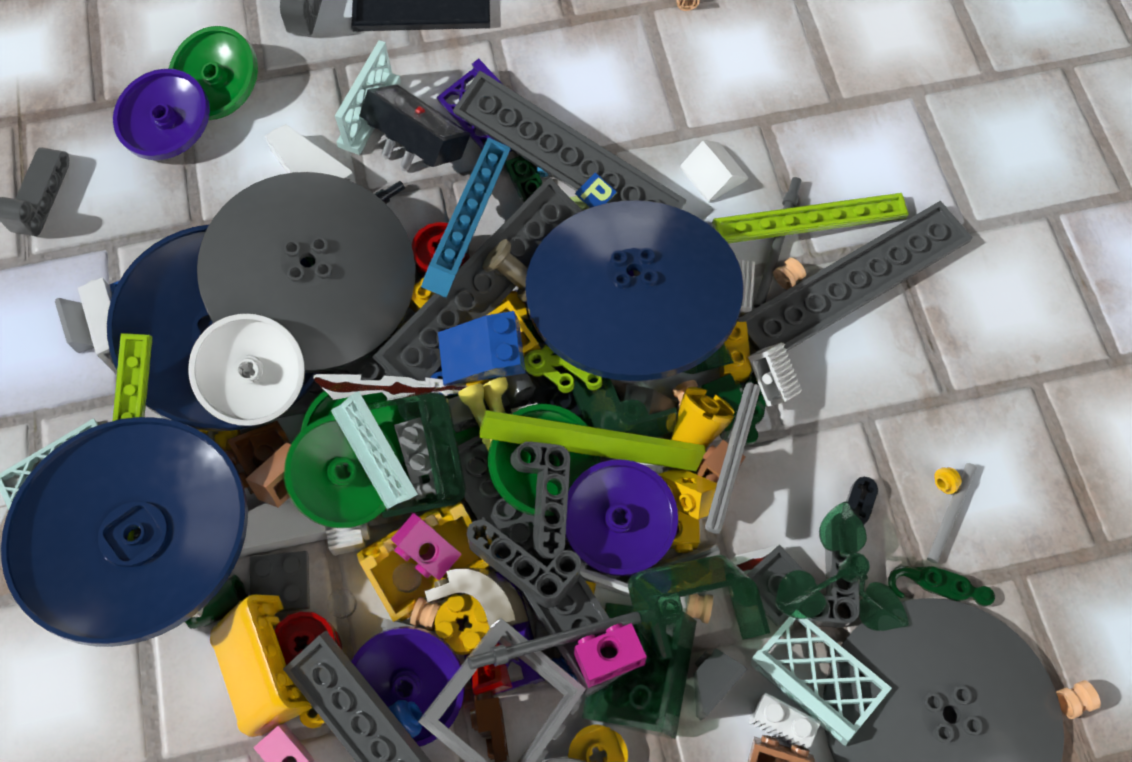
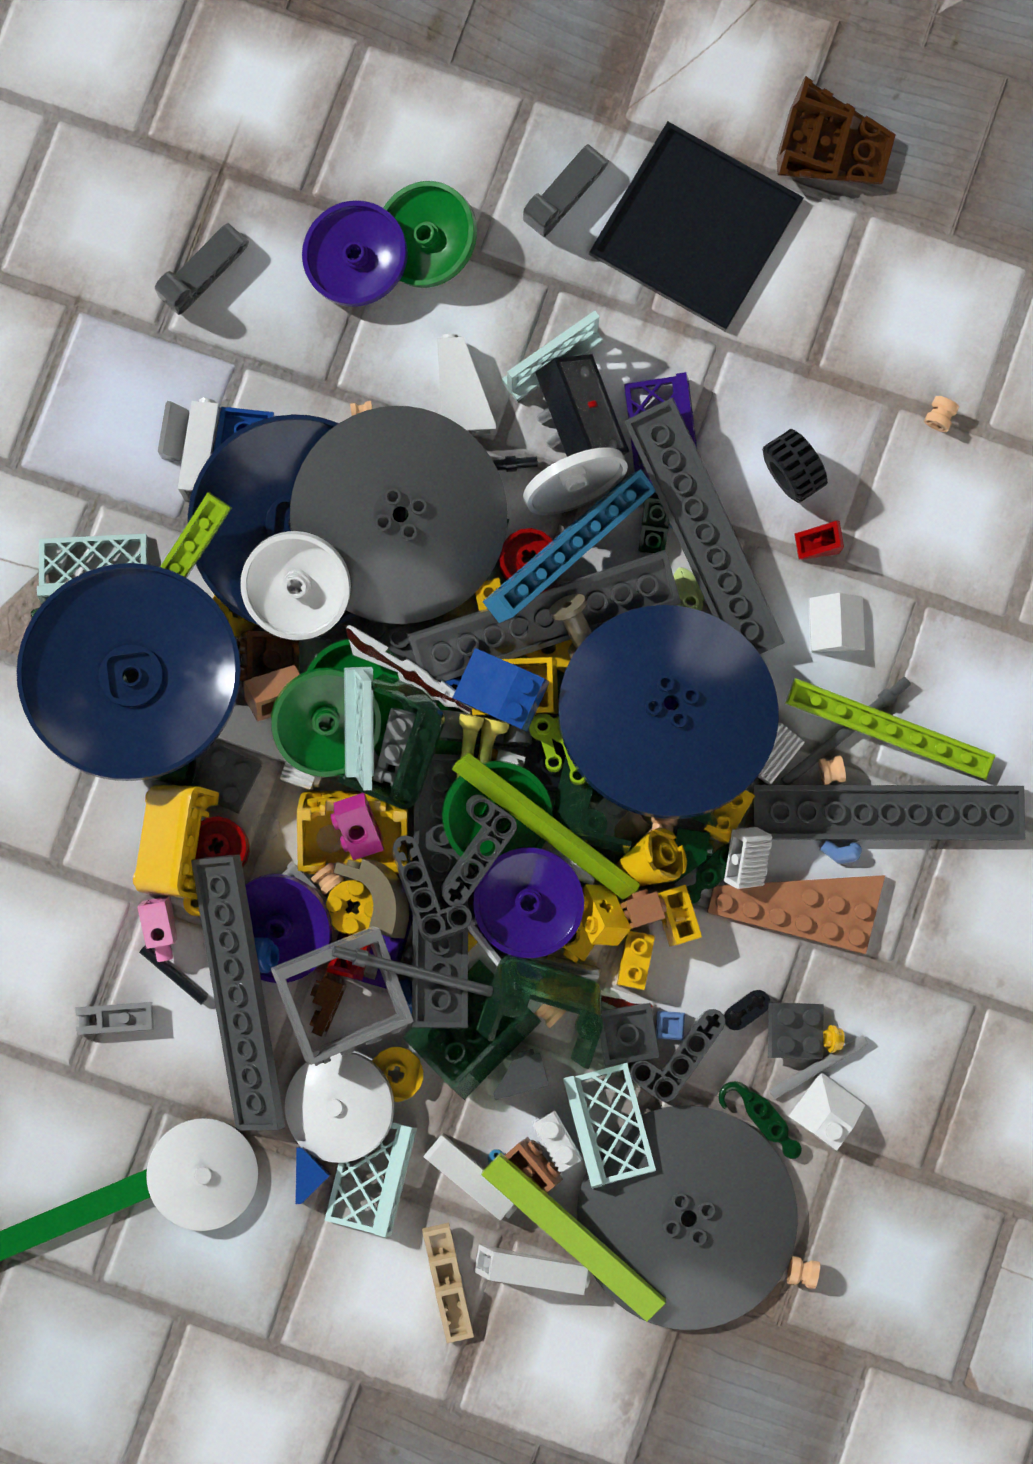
camera: 30 degrees right, 15 degrees up
(440, 166) = (575, 481): none -> white dish
(595, 192) = (704, 585): piece -> none
(600, 669) = (430, 1012): dark pink brick -> none
(605, 73) = (795, 465): none -> black tyre
(662, 118) = (820, 541): none -> red slope
(732, 459) = (652, 912): light grey axle -> none
(744, 519) = (635, 960): none -> yellow brick
(760, 460) = (680, 919): none -> yellow brick
(807, 555) = (670, 1025): none -> medium blue tile
(843, 333) = (843, 854): none -> medium blue arm
(845, 532) = (707, 1028): clear green plant -> none
(856, 387) = (819, 910): none -> nougat wing
(913, 493) = (795, 1030): none -> dark grey plate
(989, 546) = (827, 1111): none -> white slope

